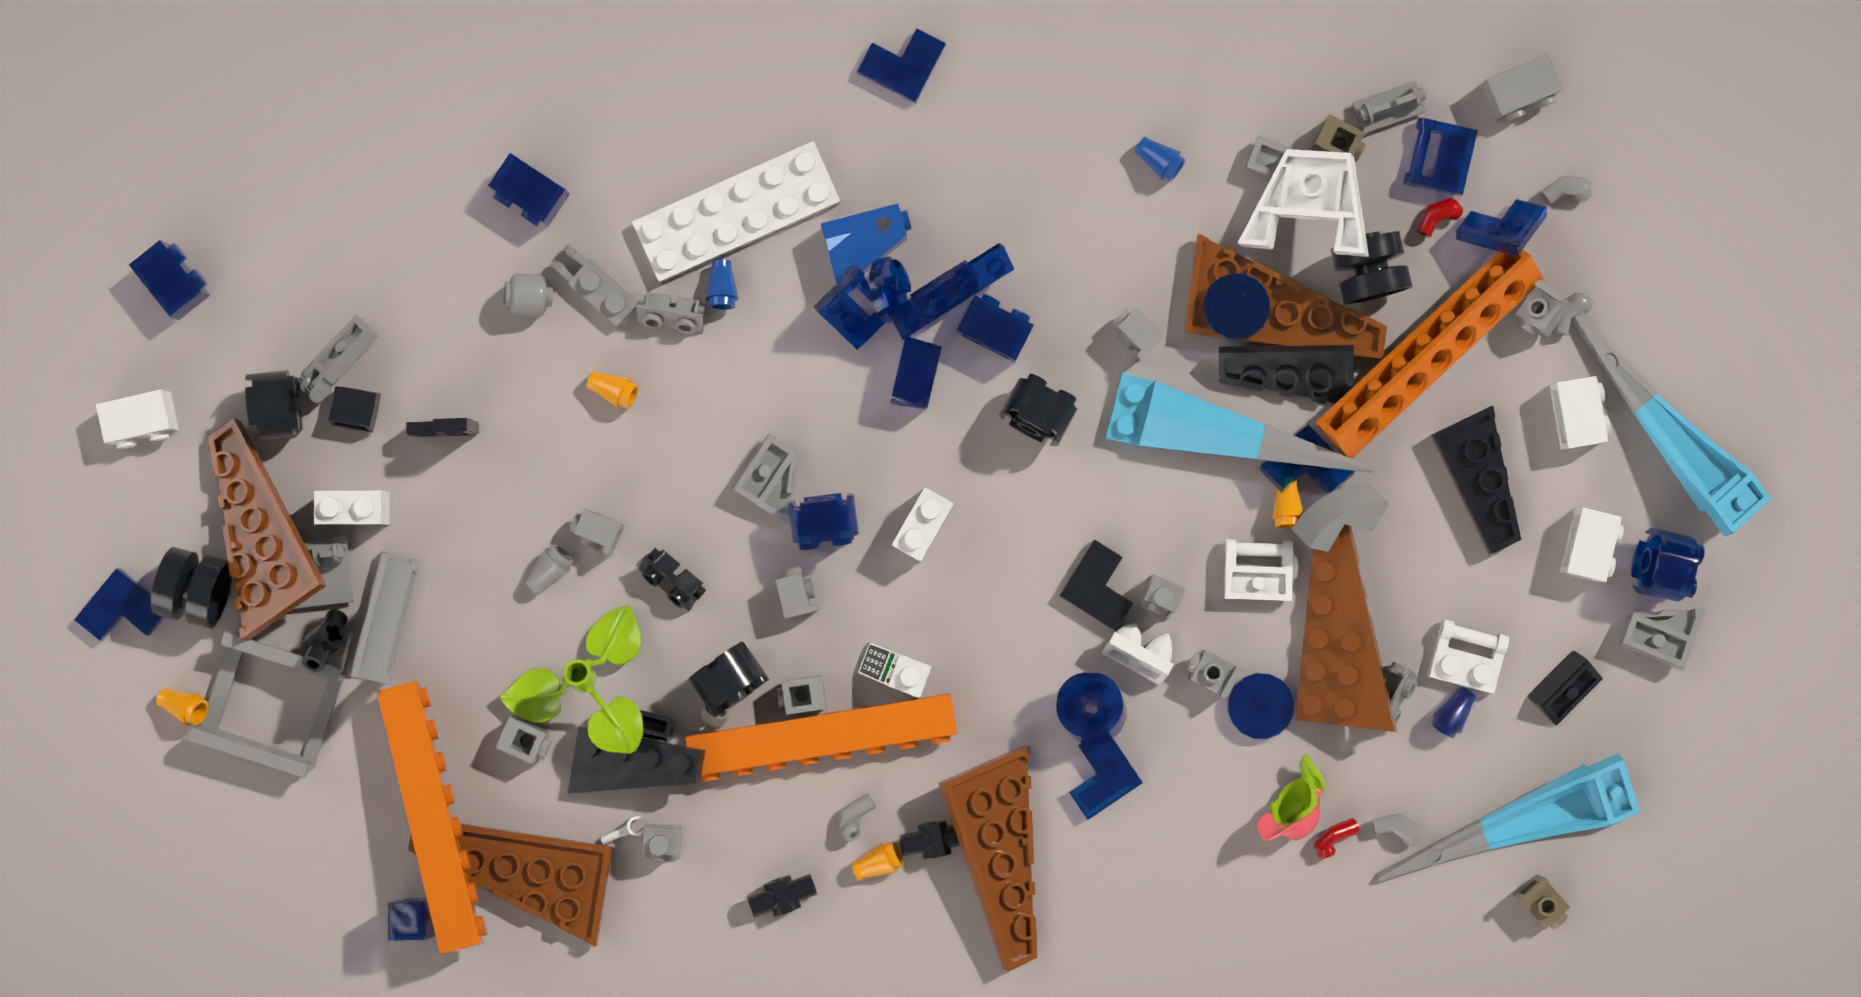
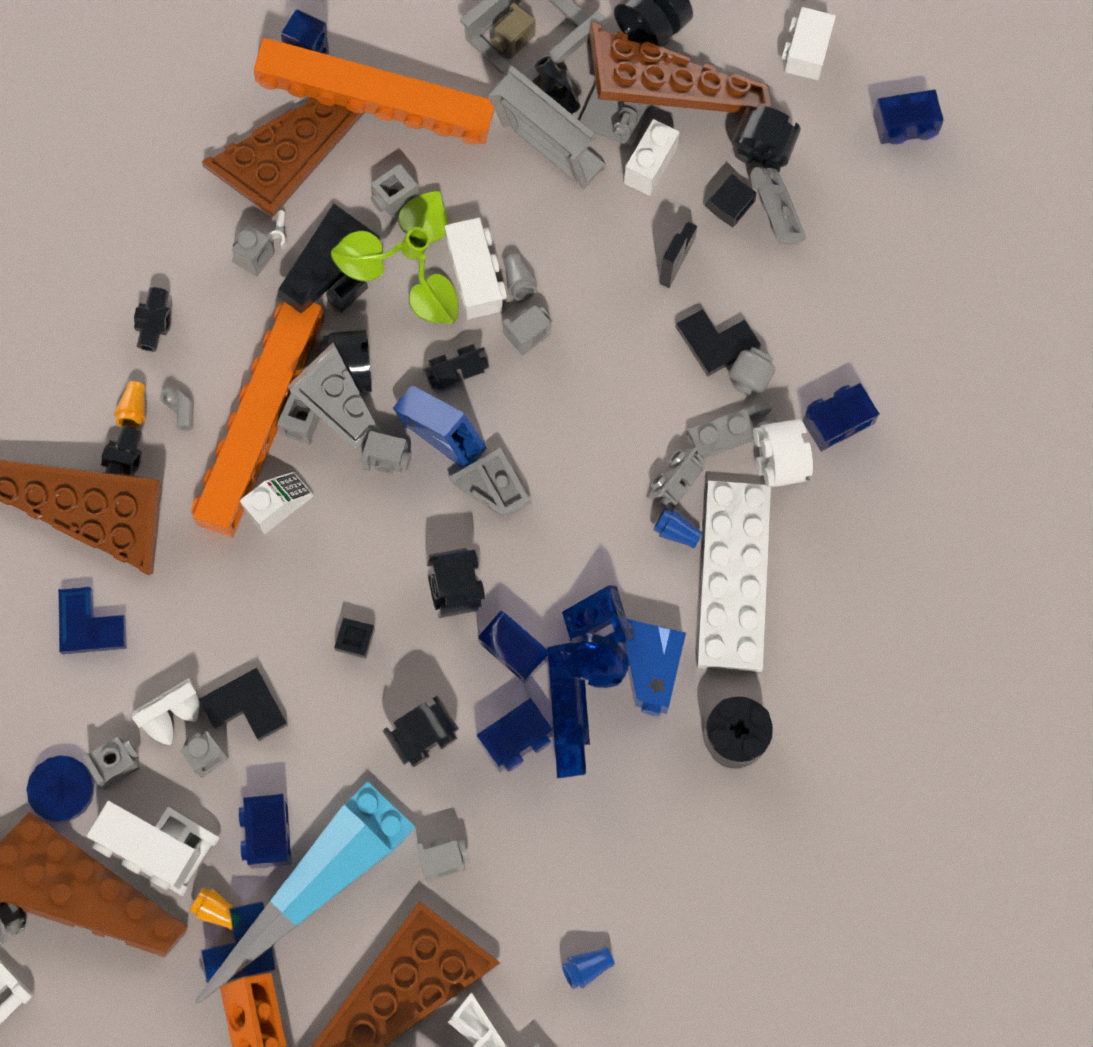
camera: 115 degrees right, 15 degrees down
(283, 721) = (513, 31): none -> dark tan brick
(521, 346) = (713, 349): none -> black tile
(562, 616) = (475, 268): none -> white brick
(598, 222) = (783, 453): none -> white brick
(614, 389) = (635, 401): light orange cone -> none
(742, 559) = (440, 426): none -> blue slope
(773, 666) = (333, 397): none -> light grey wing
(823, 519) = (432, 503): clear blue brick -> none
(886, 458) = (454, 582): none -> black brick
(888, 113) = (754, 725): none -> black brick
(907, 73) = (781, 783): clear blue tile -> none
(922, 524) = (382, 584): white brick -> none
(984, 522) = (354, 638): none -> black plate
(1098, 691) = (156, 623): clear blue brick -> none
(1198, 499) = (265, 831): none -> clear blue brick
(1236, 306) = (414, 958): clear blue tile -> none
(1273, 595) = (142, 846): none -> white brick
(1304, 371) = (322, 993): black wing -> none
(1350, 505) = (179, 959): light grey brick -> none

